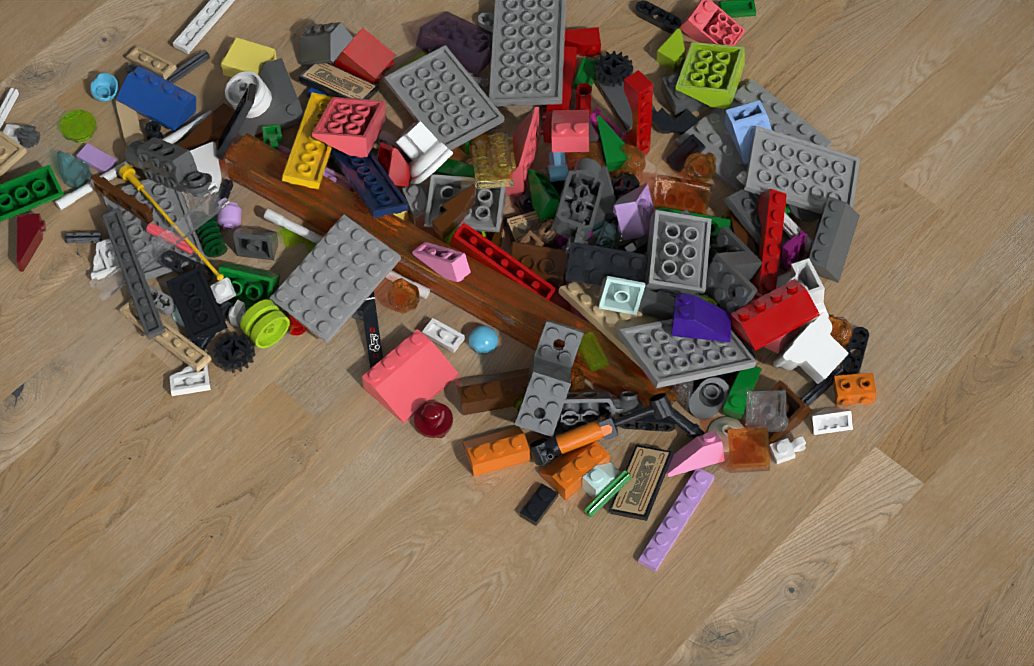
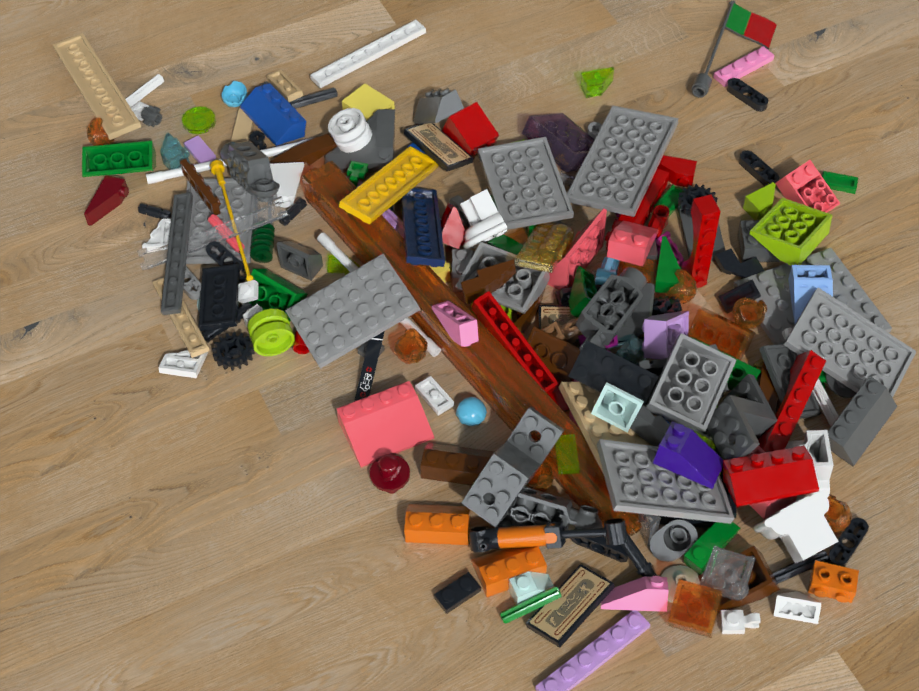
camera: 20 degrees right, 5 degrees down
(230, 216) = (288, 229): lavender head -> none
(236, 121) = (327, 145): black tile -> none
(351, 125) = (430, 181): coral slope -> none
(792, 250) = (815, 418): magenta plate -> none

